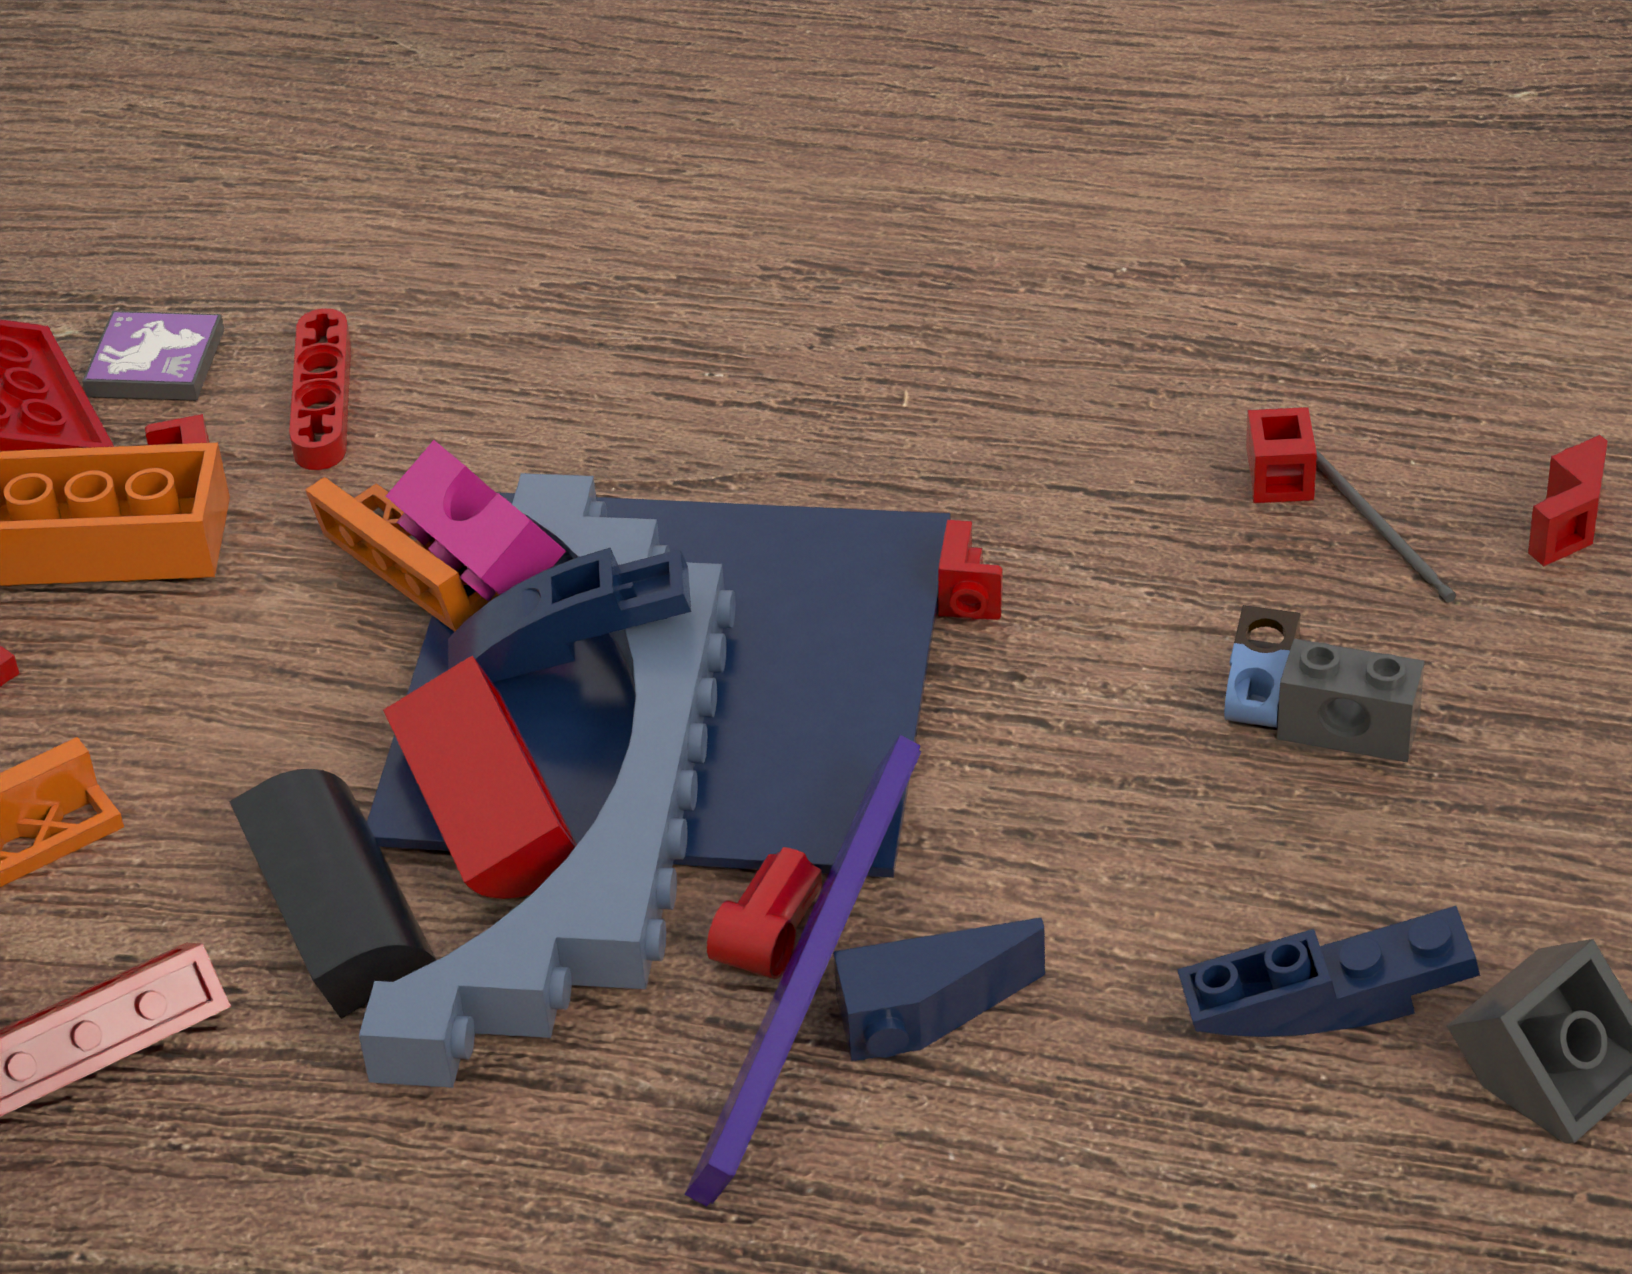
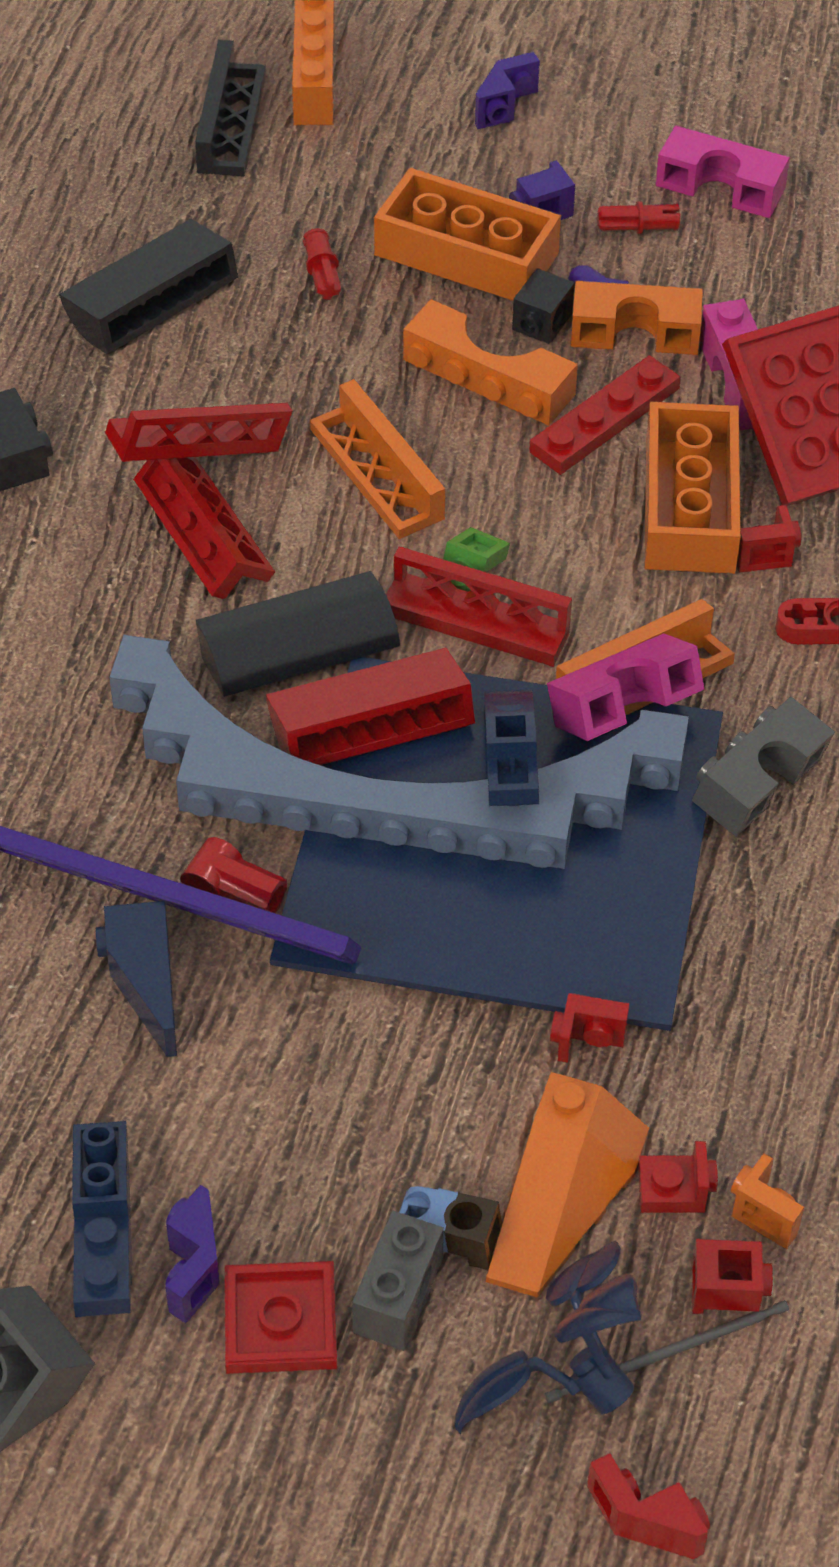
camera: 90 degrees right, 10 degrees up
(193, 722) = (475, 551): none -> bright green bracket
(283, 708) = (478, 613): none -> red fence
(535, 433) = (784, 741): none -> dark grey arch
(1158, 499) = (677, 1181): none -> red bracket
(1159, 592) = (571, 1169): none -> orange wedge
(1181, 436) = (765, 1208): none -> orange bracket
(1327, 883) = (193, 1239): none -> dark purple slope
(1409, 817) = (280, 1317): none -> red tile
(1470, 606) = (593, 1367): none -> dark blue plant

